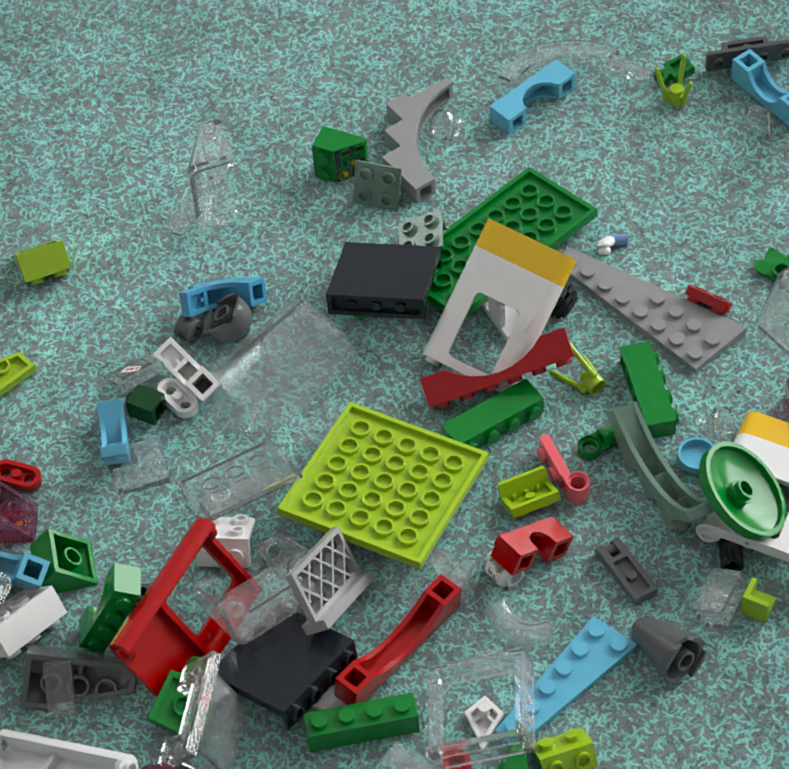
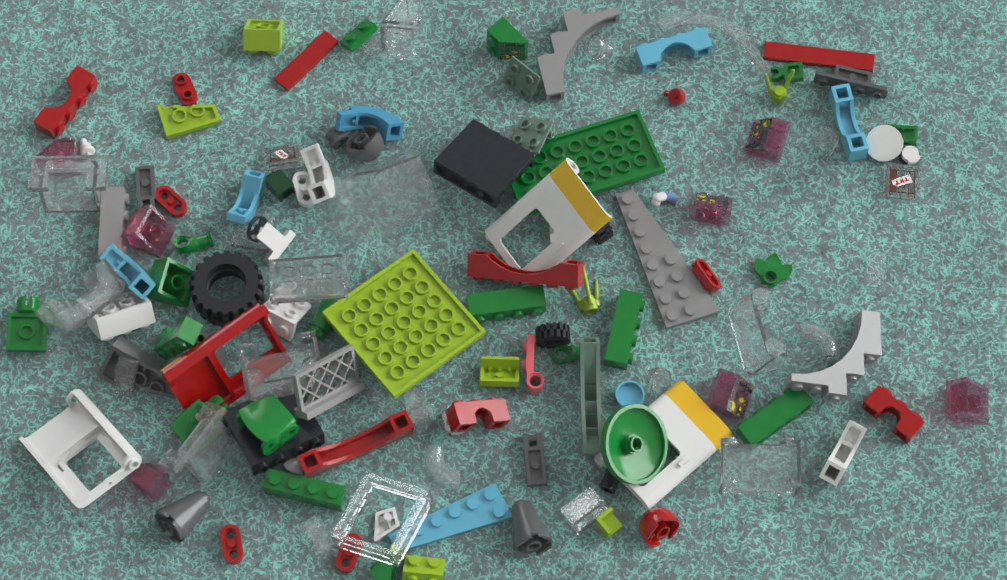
camera: 20 degrees right, 15 degrees up
(70, 507) = (194, 243): none -> green connector
(107, 268) = (306, 60): none -> red tile
(134, 510) = (220, 266): none -> black tyre
(157, 218) = (358, 35): none -> green plate
(167, 459) = (269, 237): none -> white piece
(275, 522) = (319, 323): none -> green plant
(282, 648) = (268, 422): none -> green piece
(562, 140) = (675, 96): none -> red piece
(569, 426) = (552, 335): none -> black tyre
(674, 230) = (711, 208): none -> clear pink slope
(692, 139) = (768, 138): none -> clear pink slope
(694, 45) = (817, 56): none -> red tile

